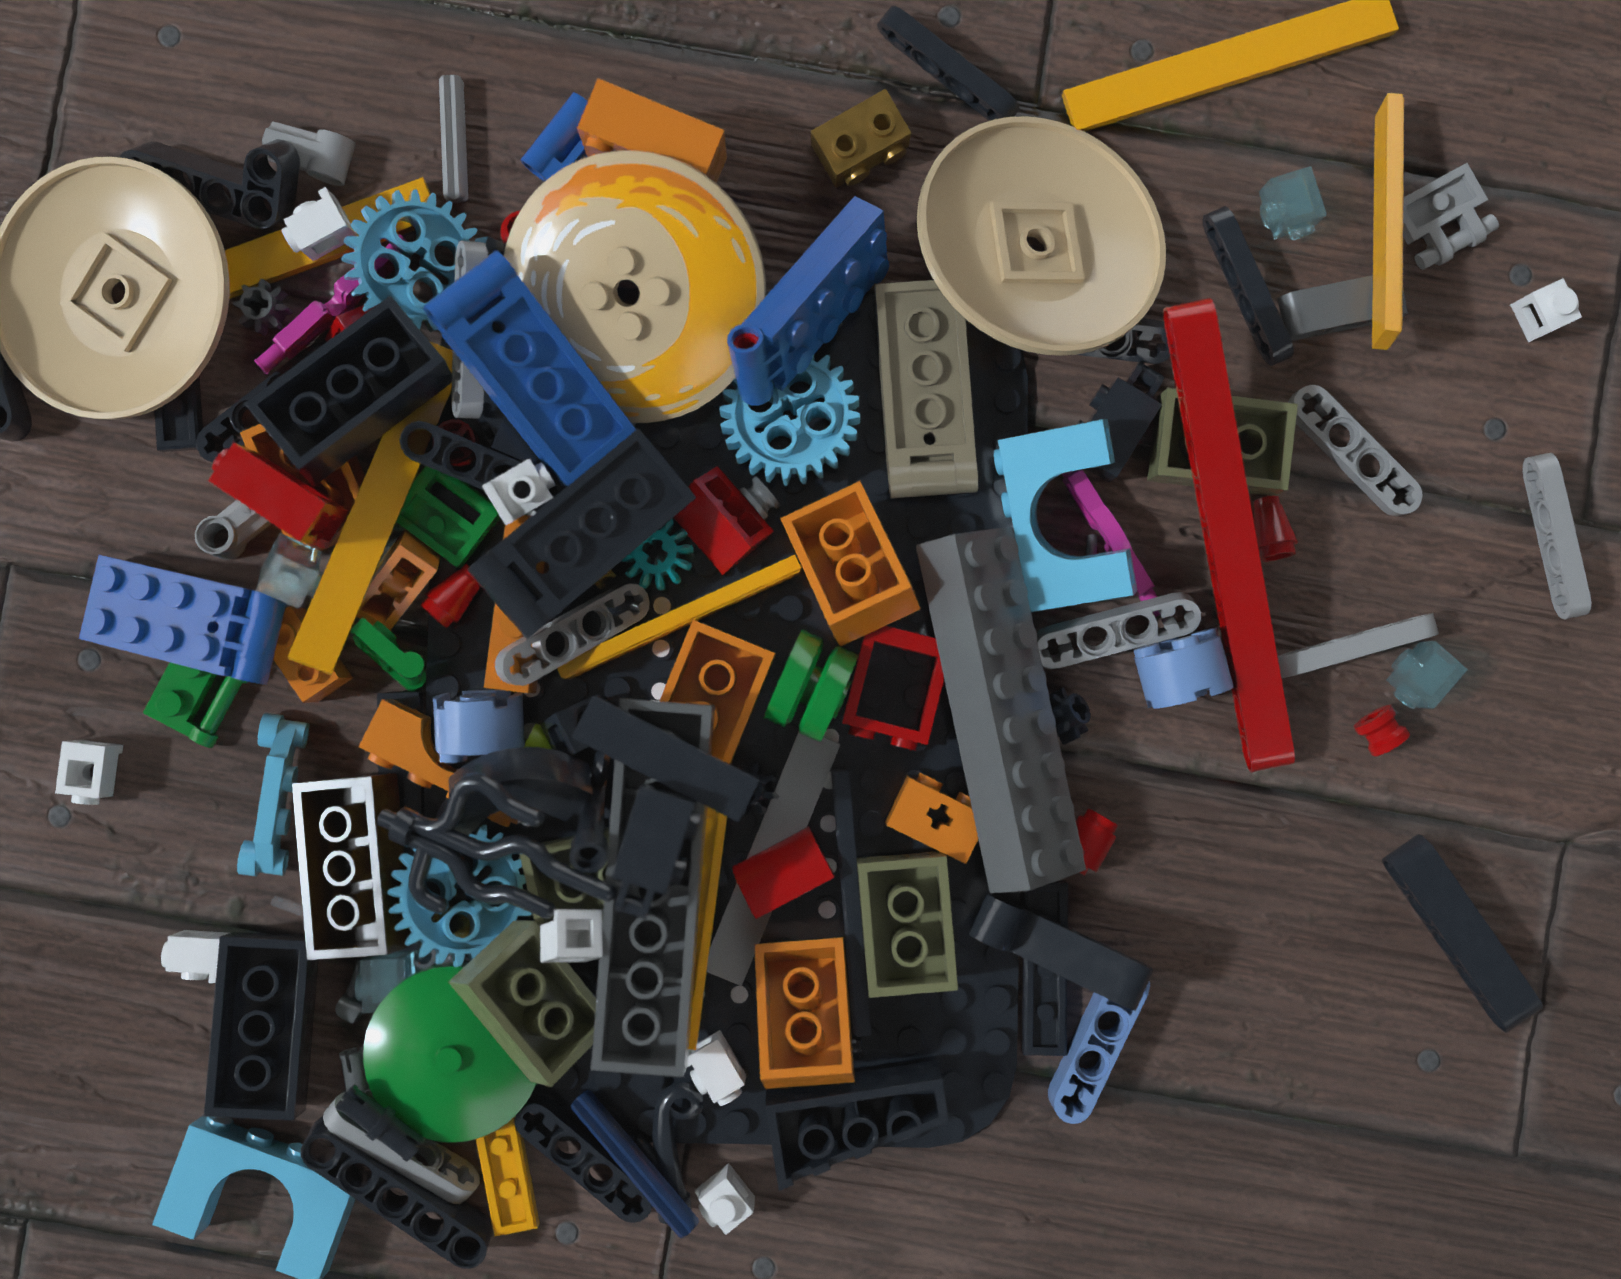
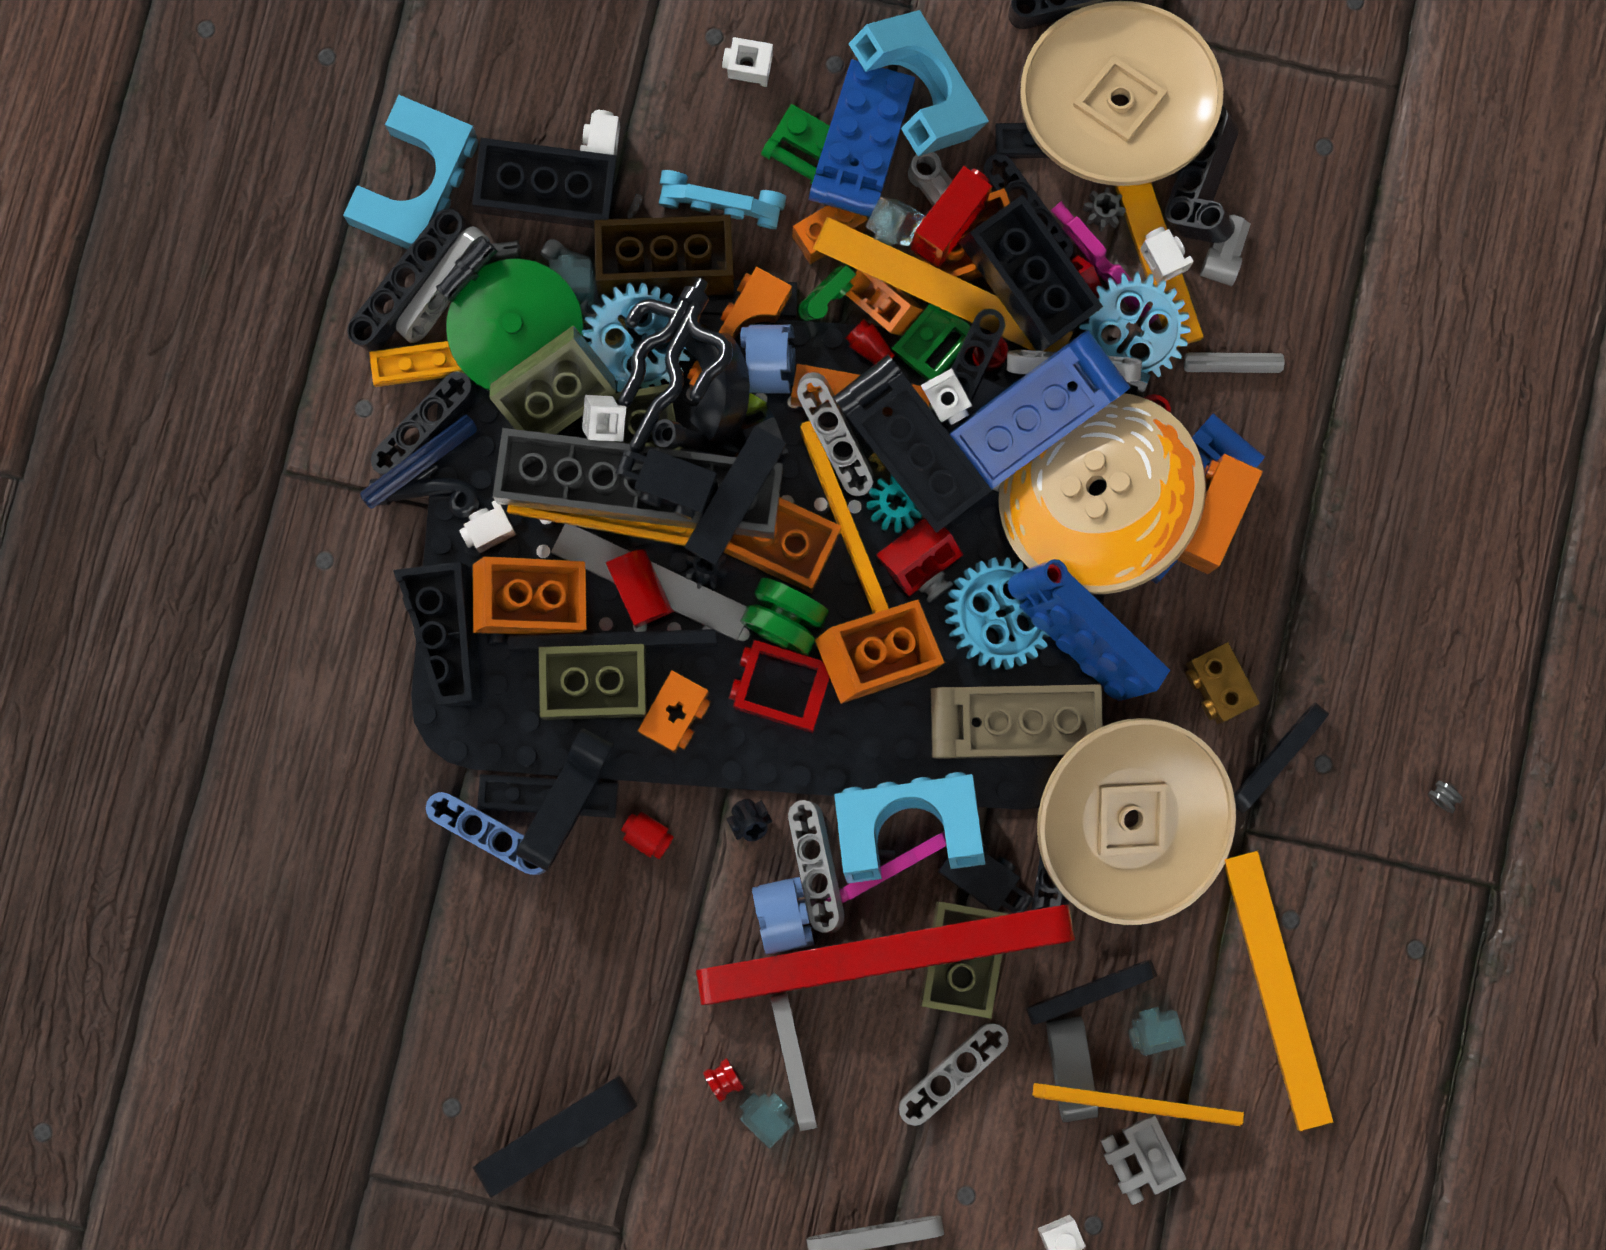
camera: 90 degrees right, 5 degrees down
(55, 562) = (913, 45): none -> medium azure arch
(725, 1199) = (383, 531): white brick -> none
(1001, 709) = (759, 764): dark grey brick -> none
(1273, 530) = (891, 1000): red cone -> none

